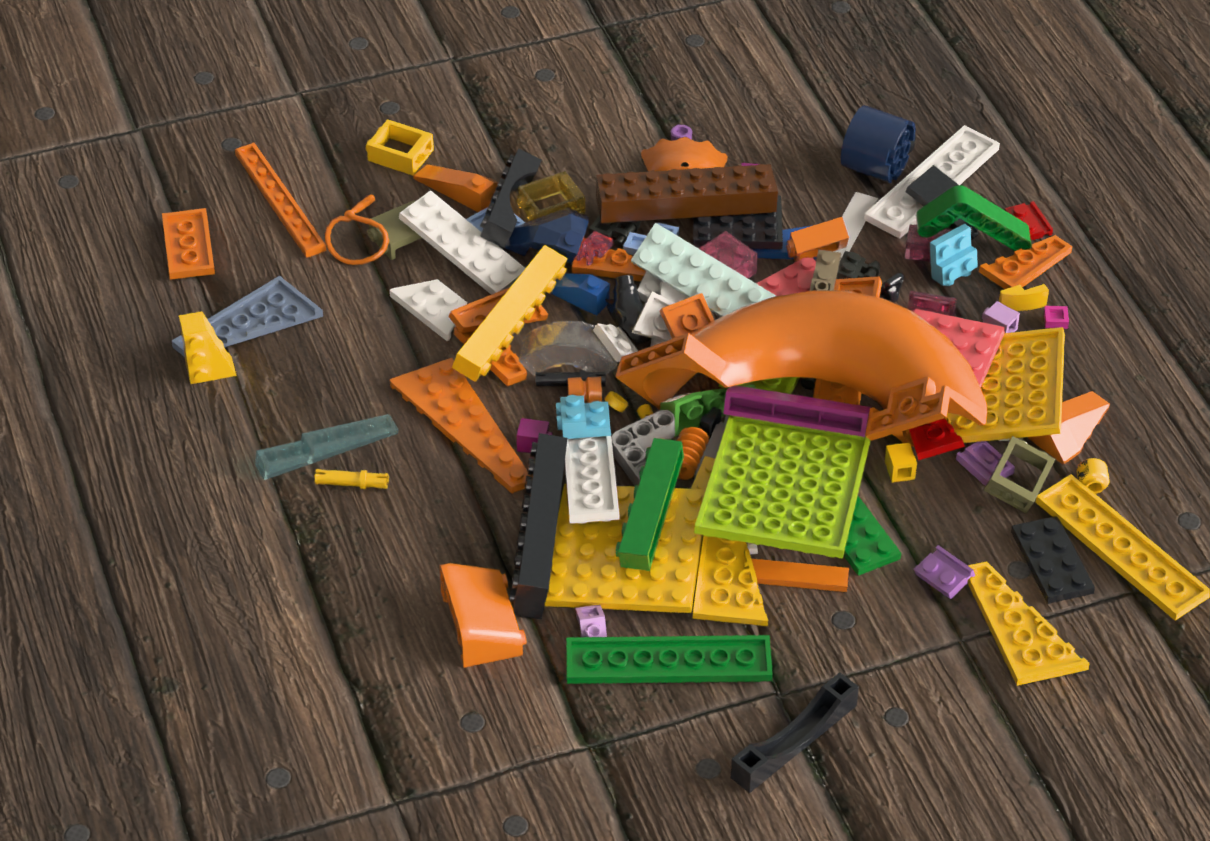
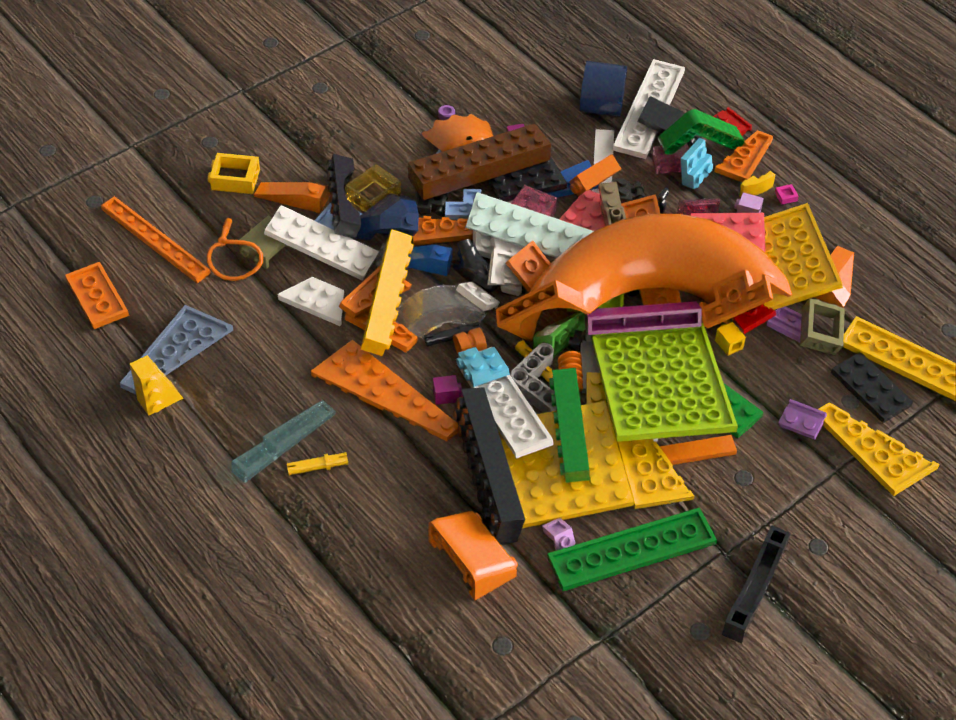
camera: 20 degrees left, 5 degrees up
(594, 245) = (426, 220): clear pink plate -> none
(616, 401) = (497, 343): yellow tile -> none
(1093, 474) = (871, 311): yellow head -> none

